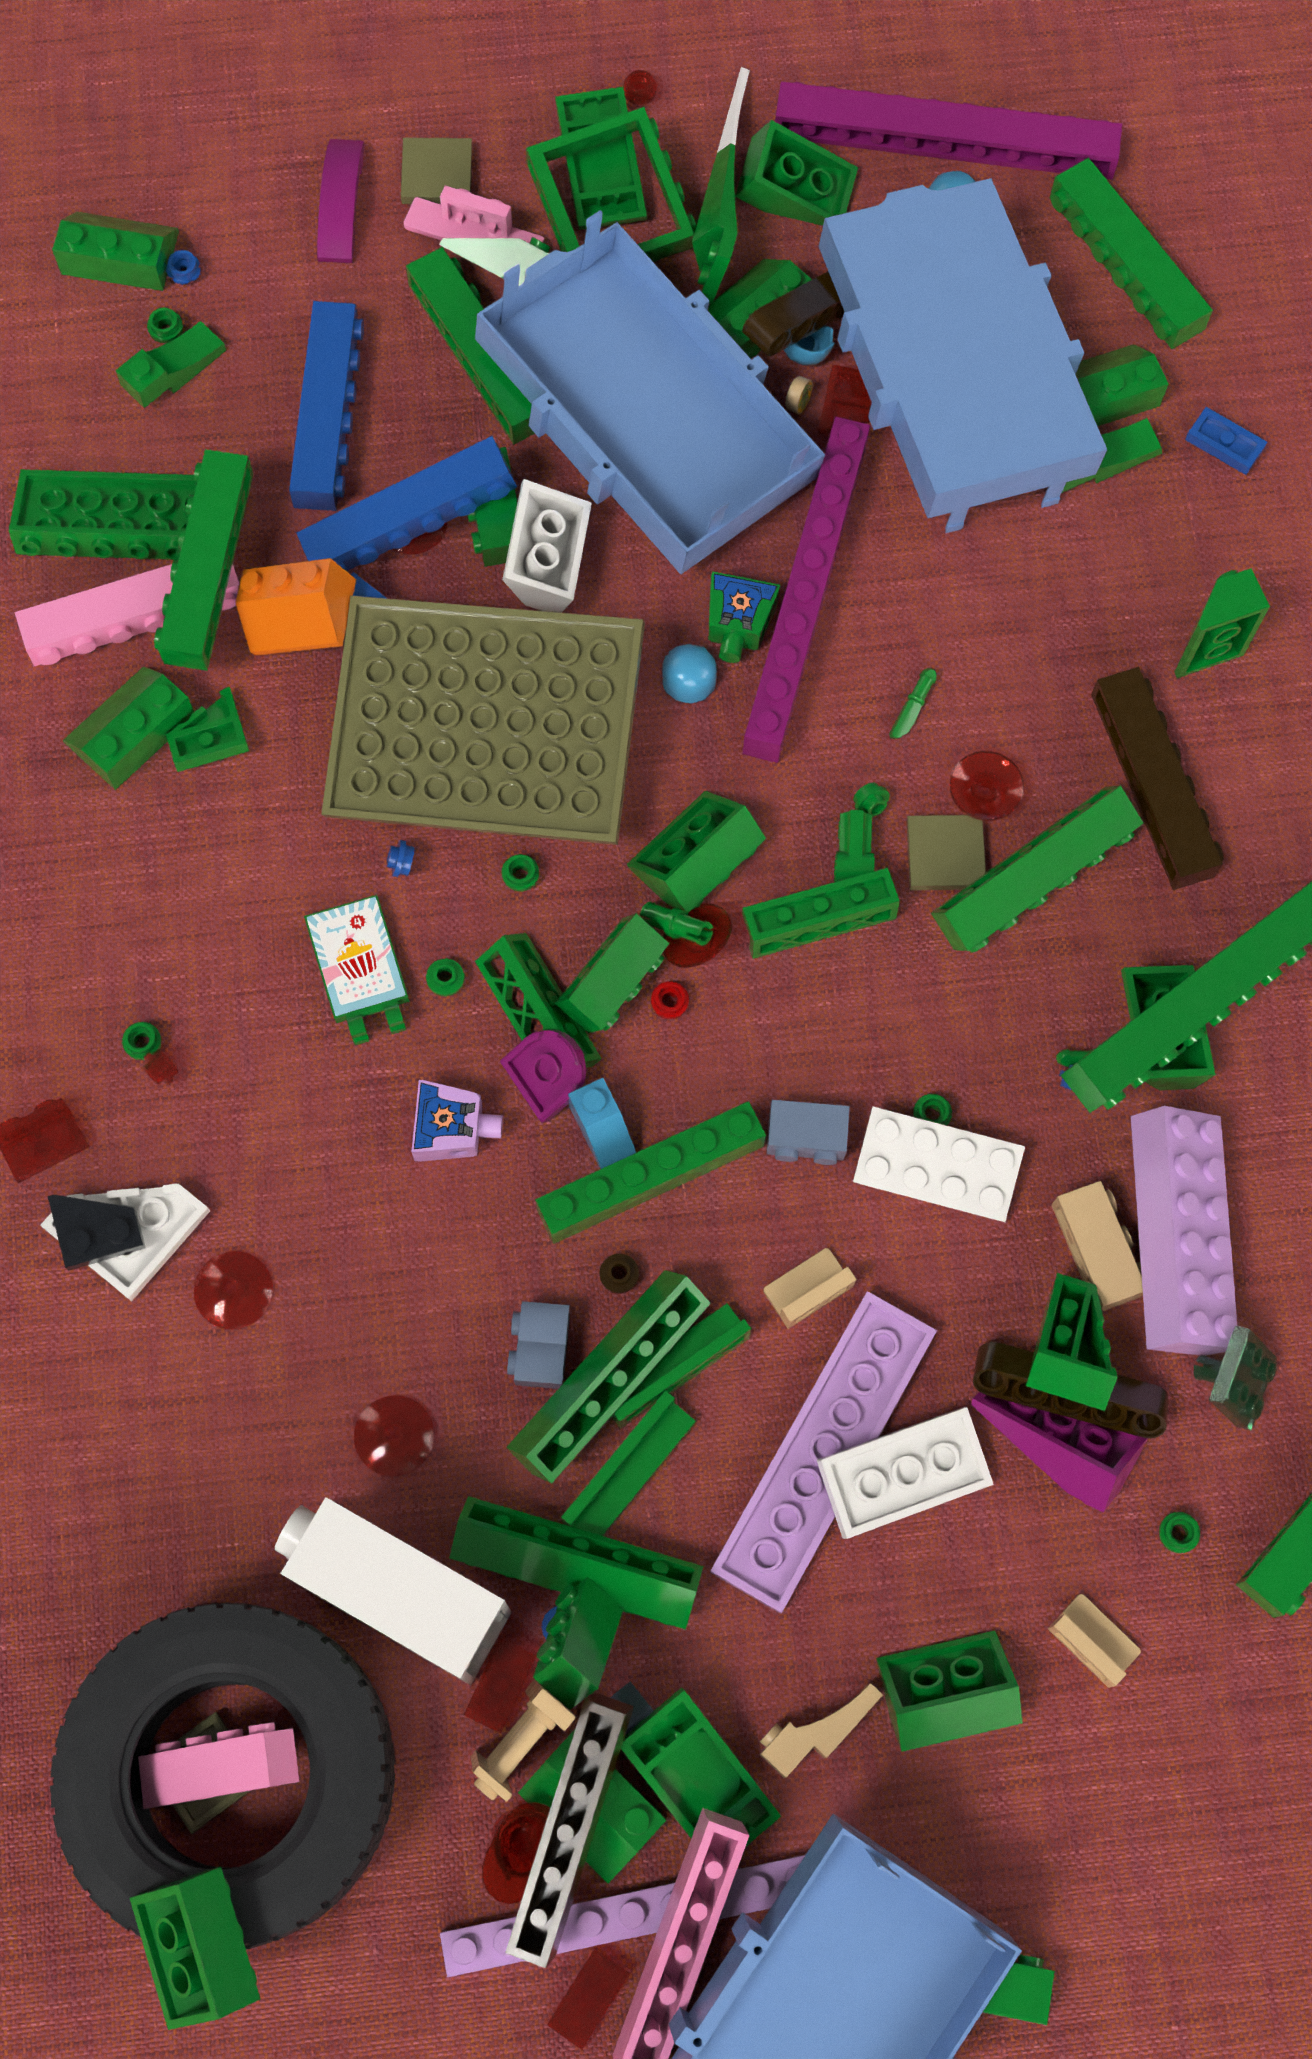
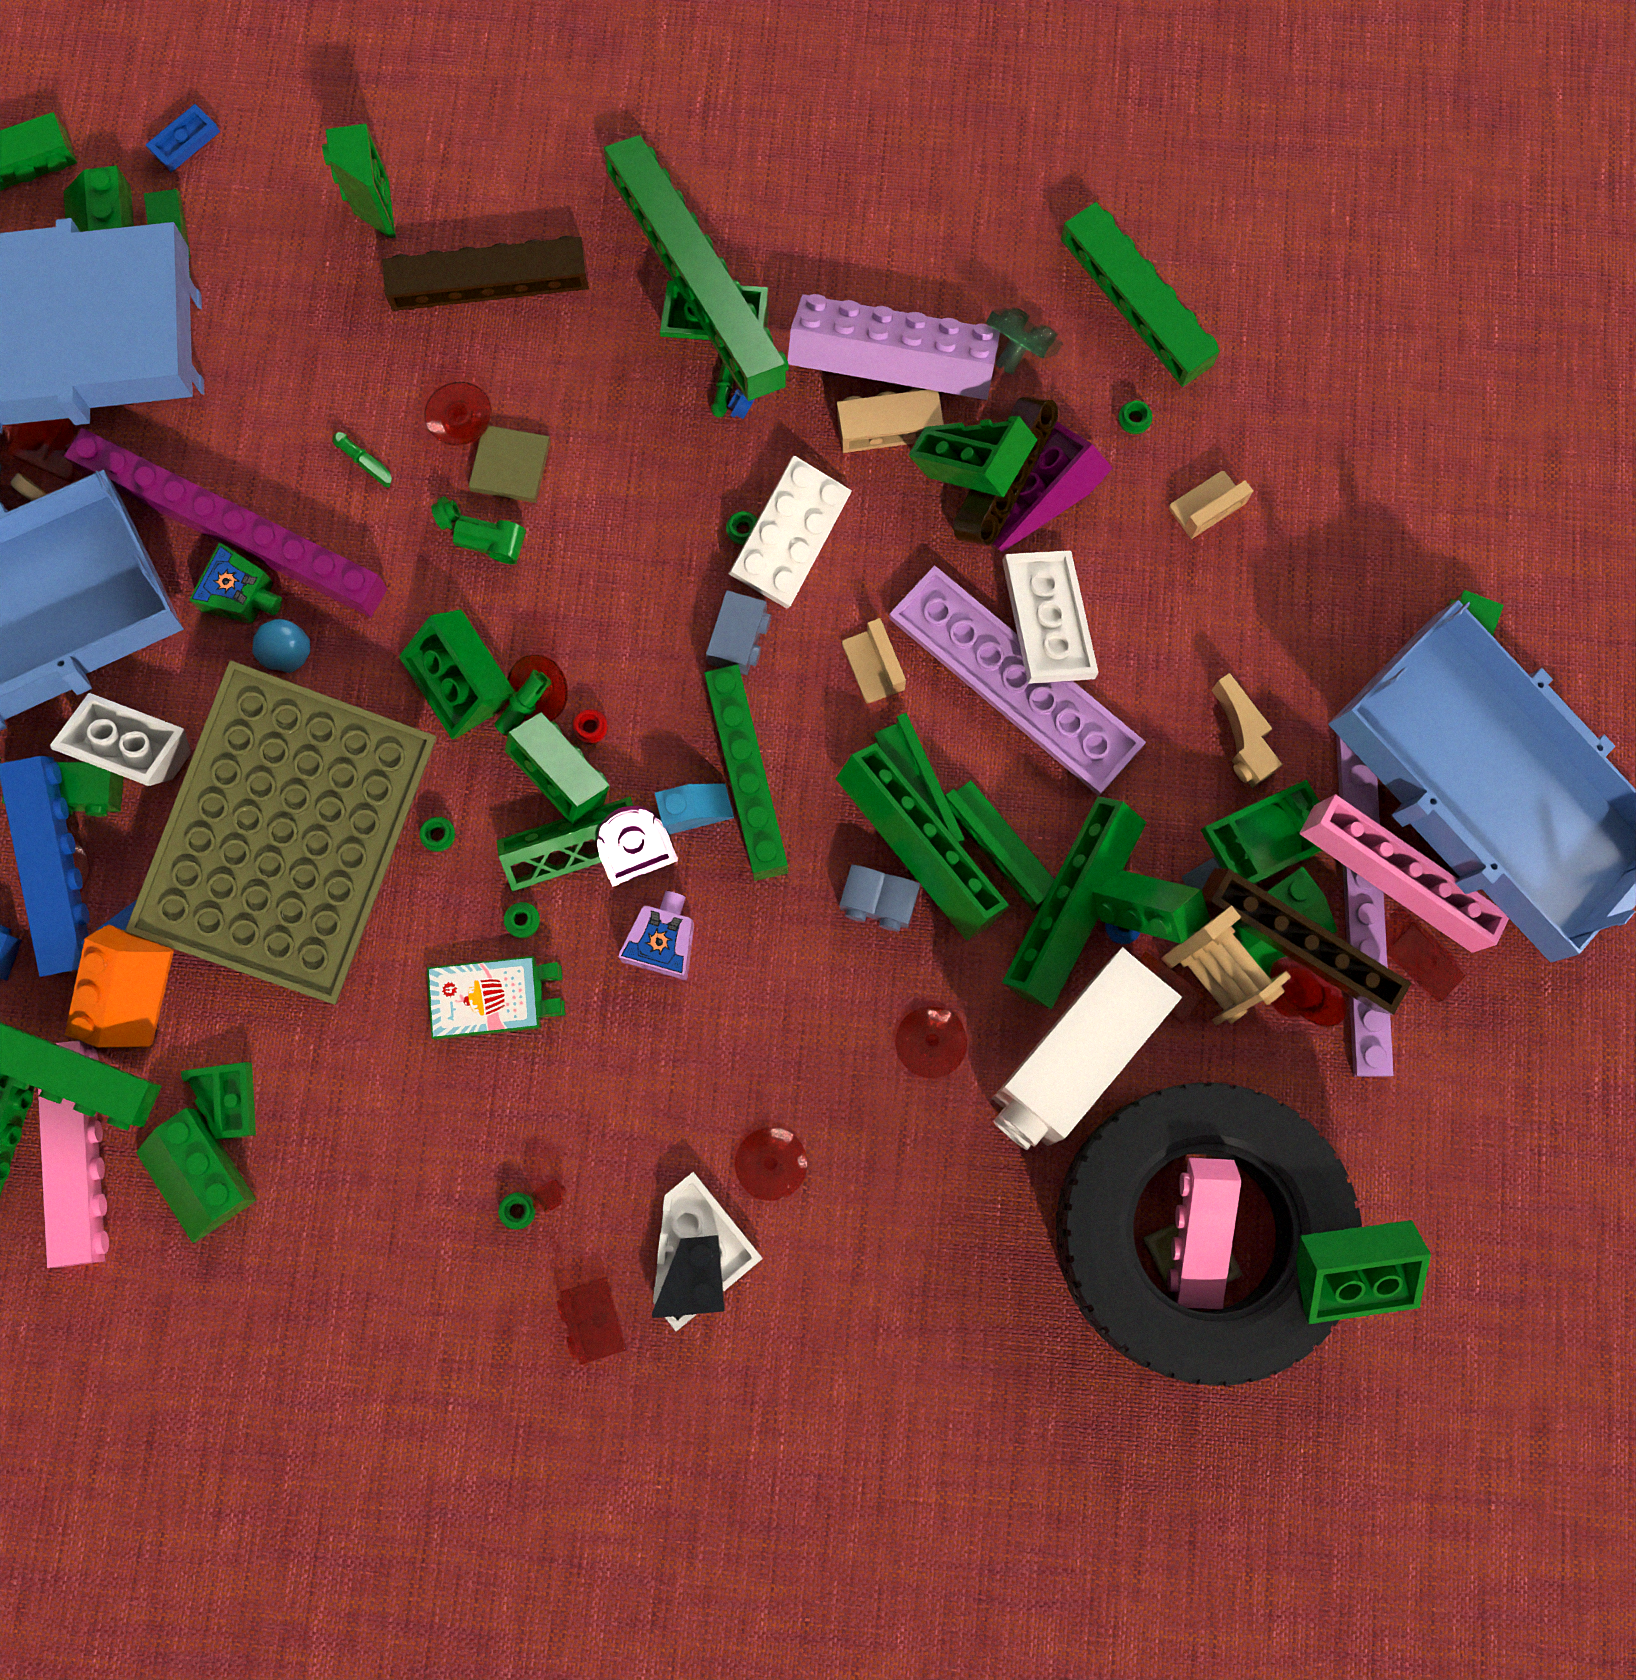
camera: 75 degrees left, 5 degrees up
(400, 858) = (397, 939): blue plate -> none
(619, 1285) = (833, 829): dark brown plate -> none
(821, 912) = (542, 577): green fence -> none
(949, 1690) = (1230, 622): green slope -> none
(1037, 869) = (546, 388): green brick -> none

